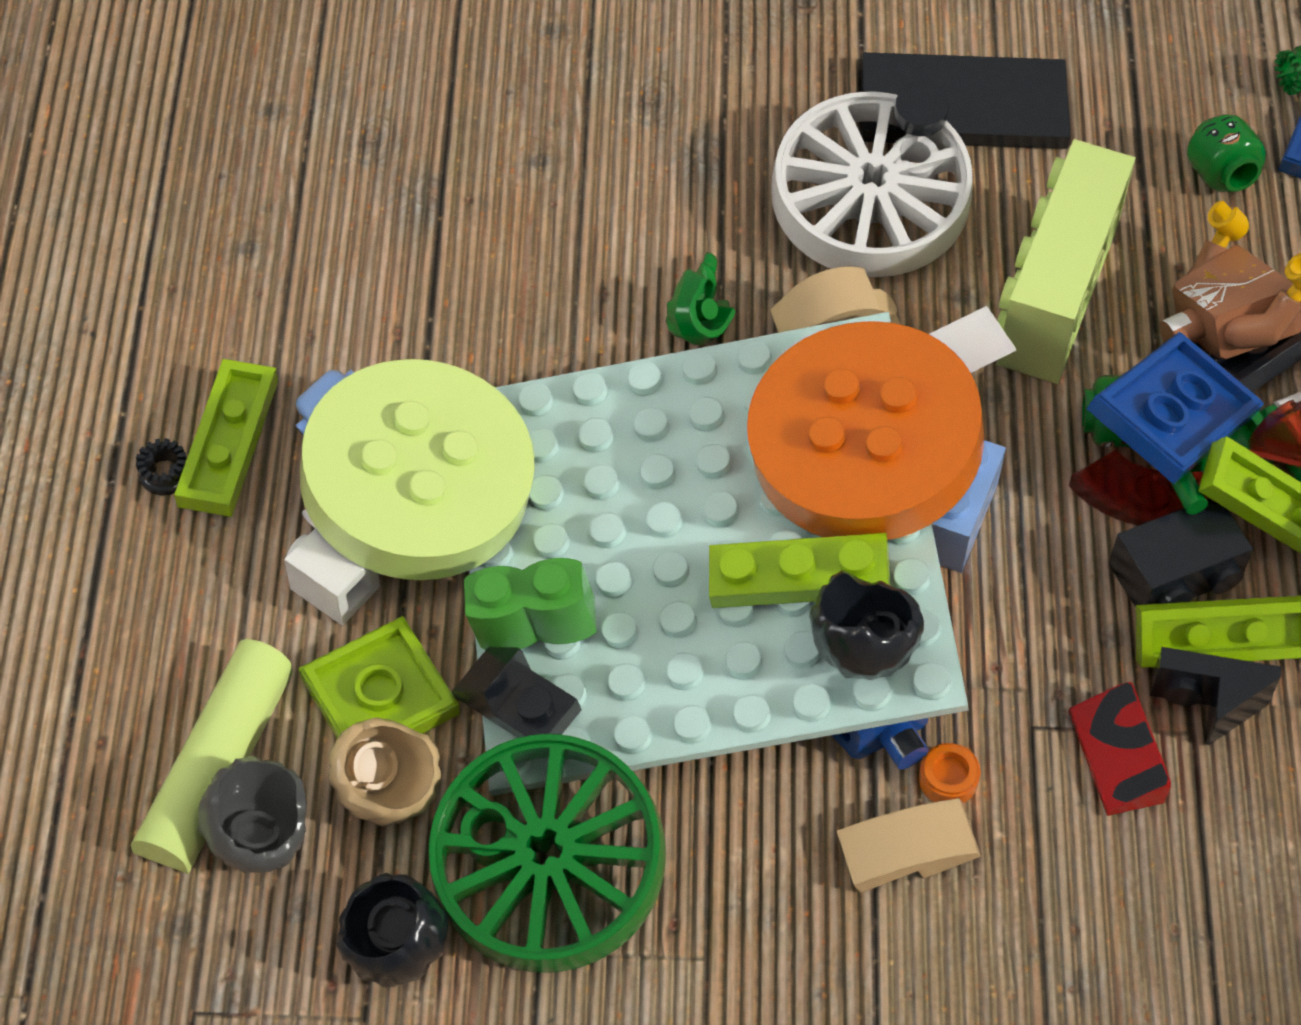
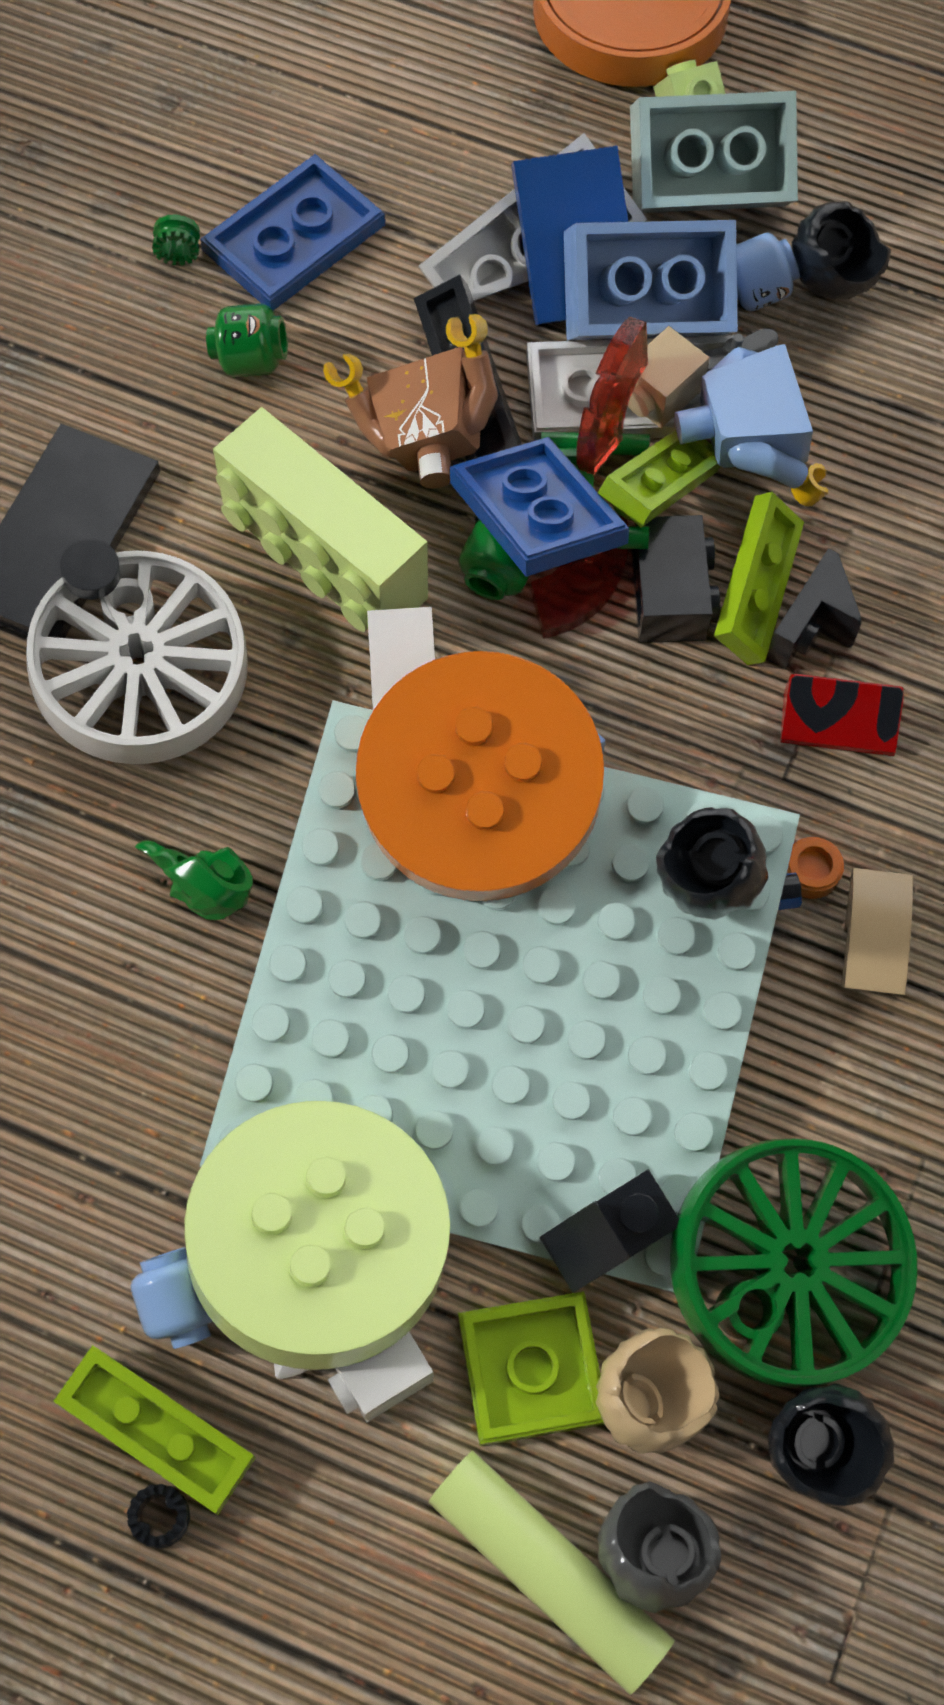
camera: 70 degrees left, 10 degrees up
(541, 603) = (521, 1191): bright green brick -> none
(791, 568) = (599, 903): lime plate -> none
(830, 298) = (281, 756): tan brick -> none

